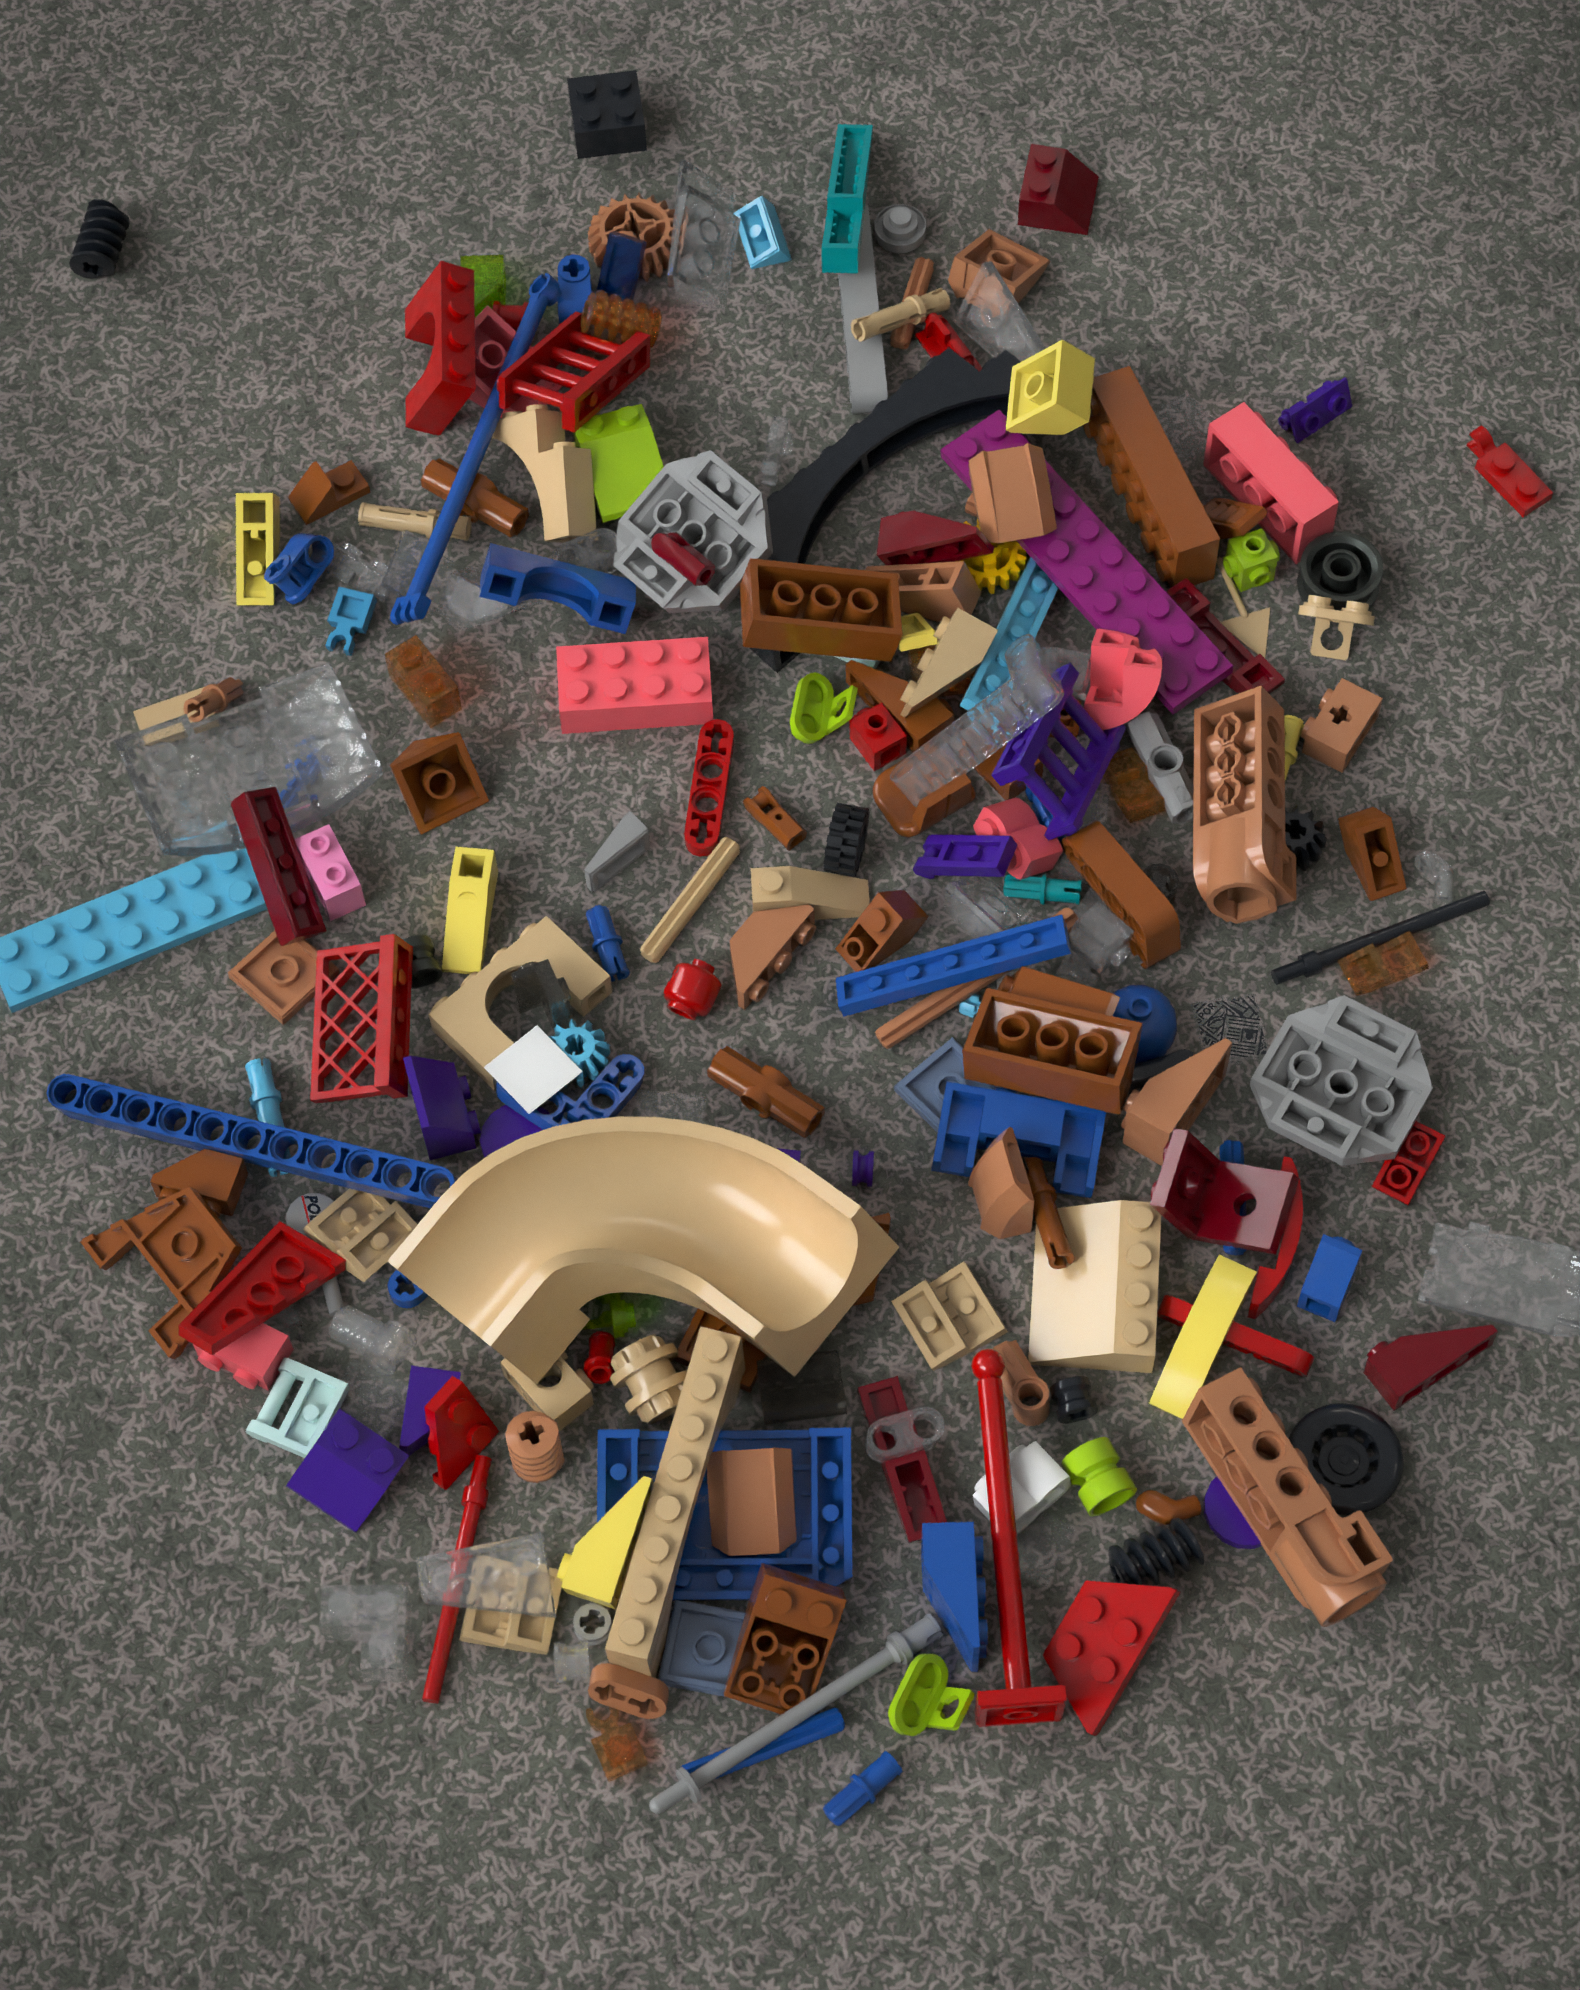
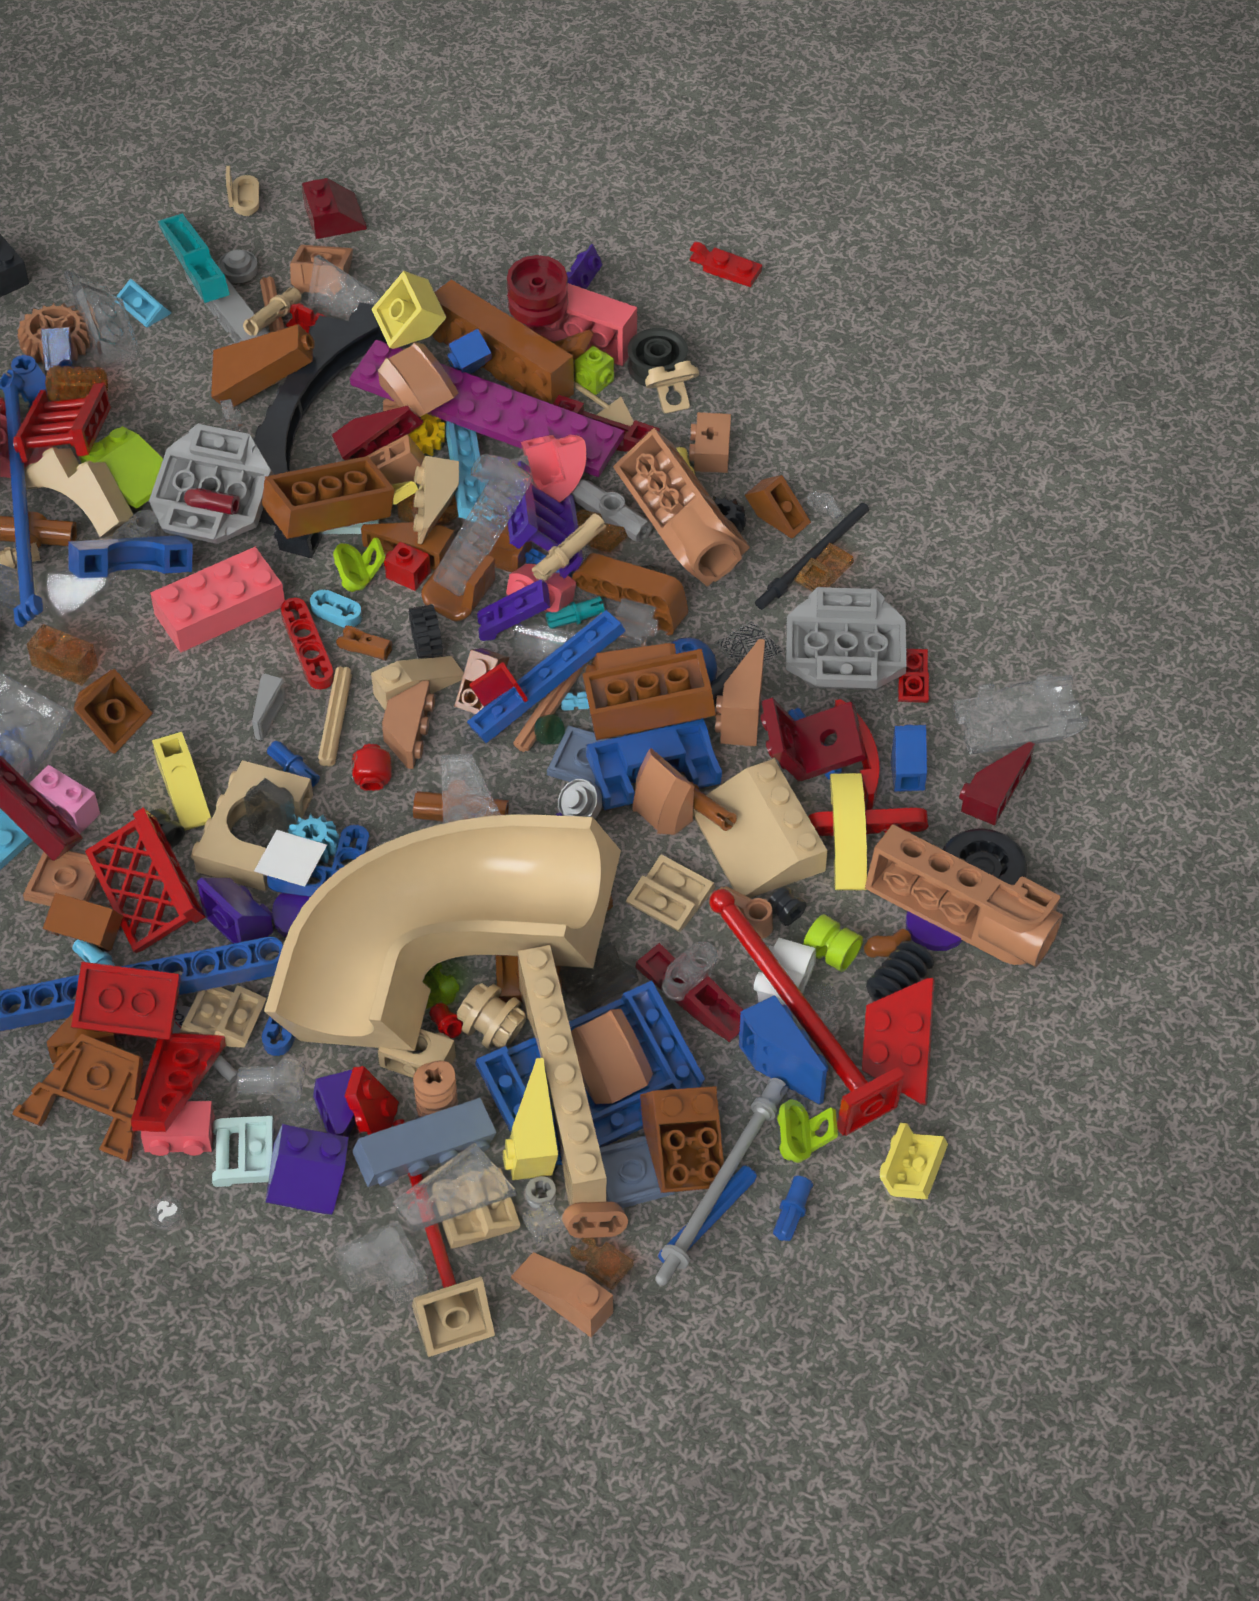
camera: 30 degrees left, 10 degrees down
(179, 1443) = (166, 1213): none -> clear tile
(253, 1171) = (126, 1001): none -> red plate
(270, 1041) = (83, 921): none -> dark orange panel
(411, 1729) = (453, 1316): none -> tan slope
(490, 1503) = (423, 1142): none -> sand blue brick
(550, 1759) = (566, 1292): none -> nougat slope
(761, 760) = (334, 610): none -> medium azure beam
(770, 1086) = (464, 789): none -> clear wing
(840, 385) = (258, 363): none -> dark orange slope
(885, 949) = (494, 684): none -> red bracket
(906, 1148) = (580, 799): none -> light grey plate
(924, 1034) = (549, 729): none -> clear green tile
(959, 126) = (243, 193): none -> tan bracket
(1030, 1804) = (912, 1163): none -> light yellow bracket
(1057, 811) = (560, 555): none -> tan pin
(1096, 479) = (469, 352): none -> blue slope
(1218, 432) = (537, 290): none -> dark red wheel

